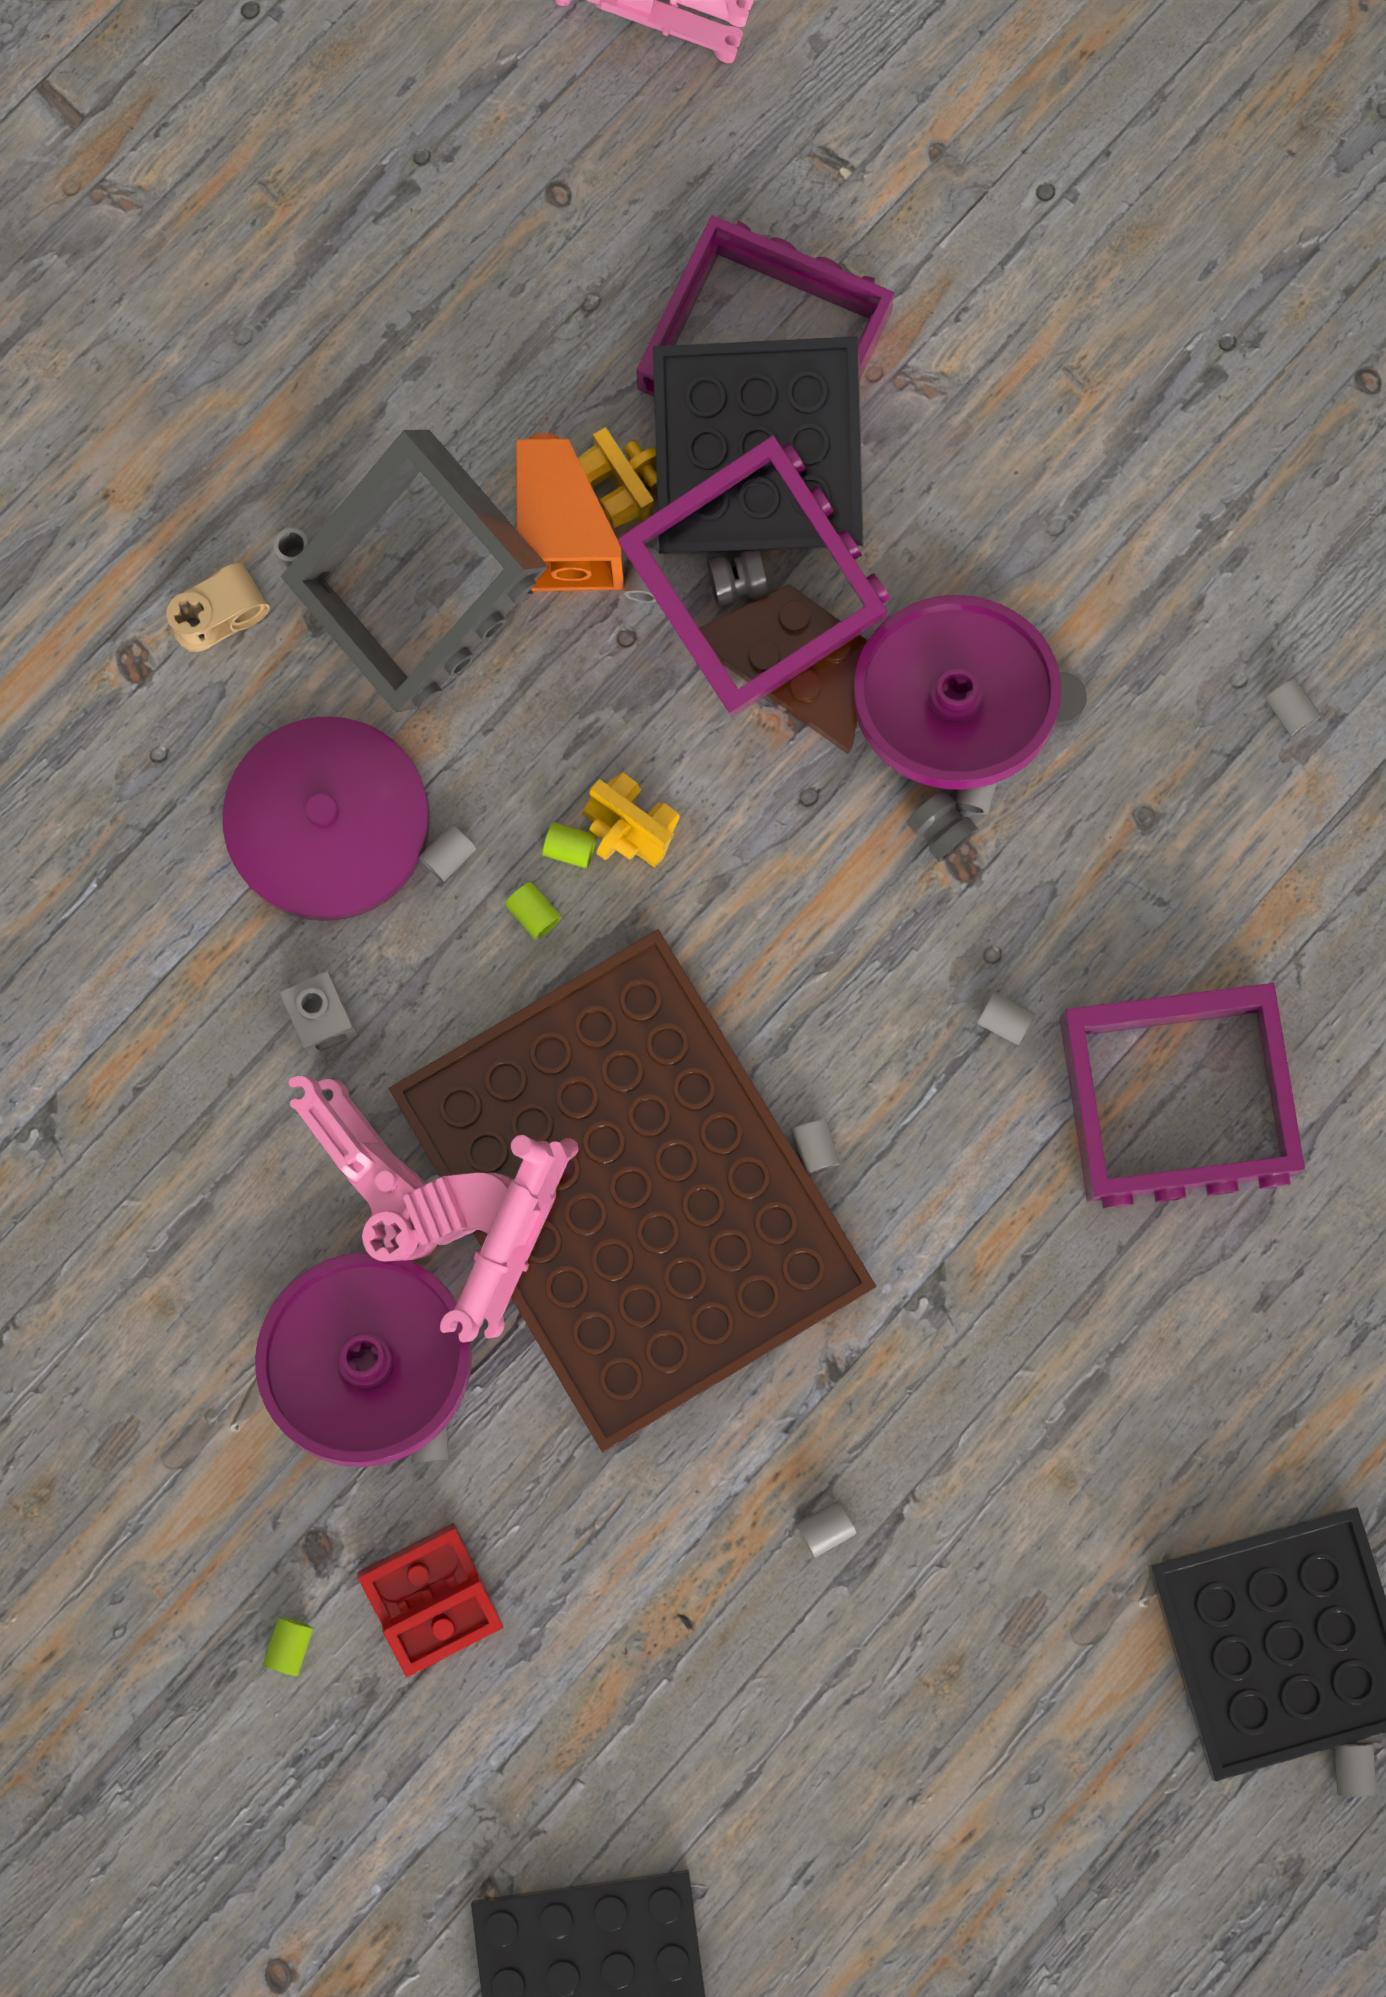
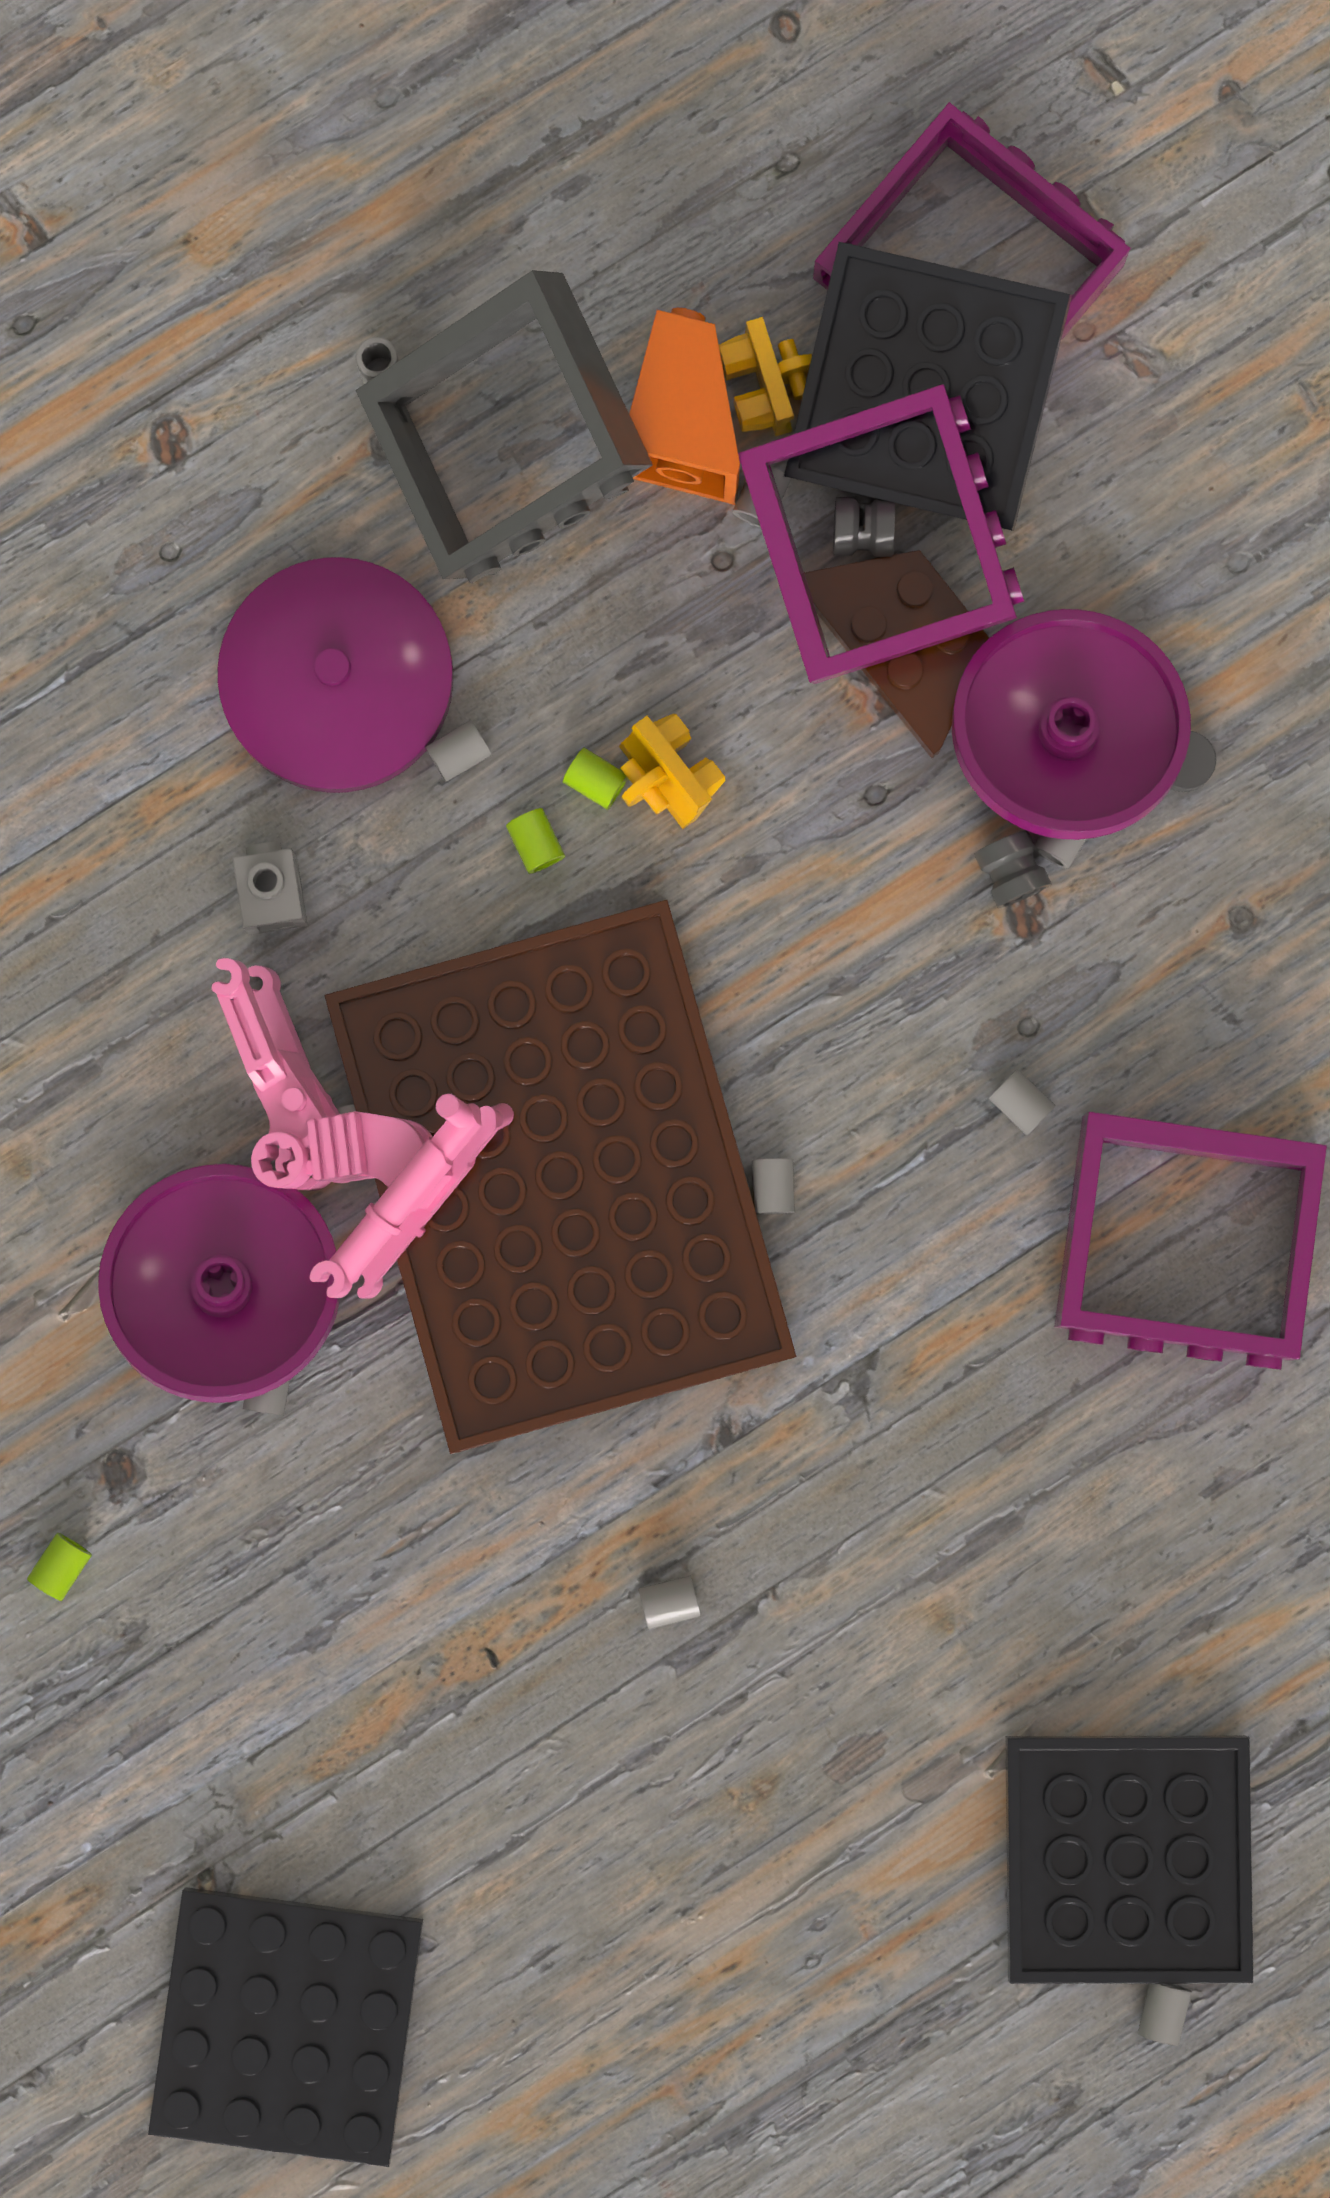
camera: 15 degrees right, 5 degrees up
(220, 604) = (282, 405): tan piece -> none
(430, 1600) = (223, 1559): red slope -> none

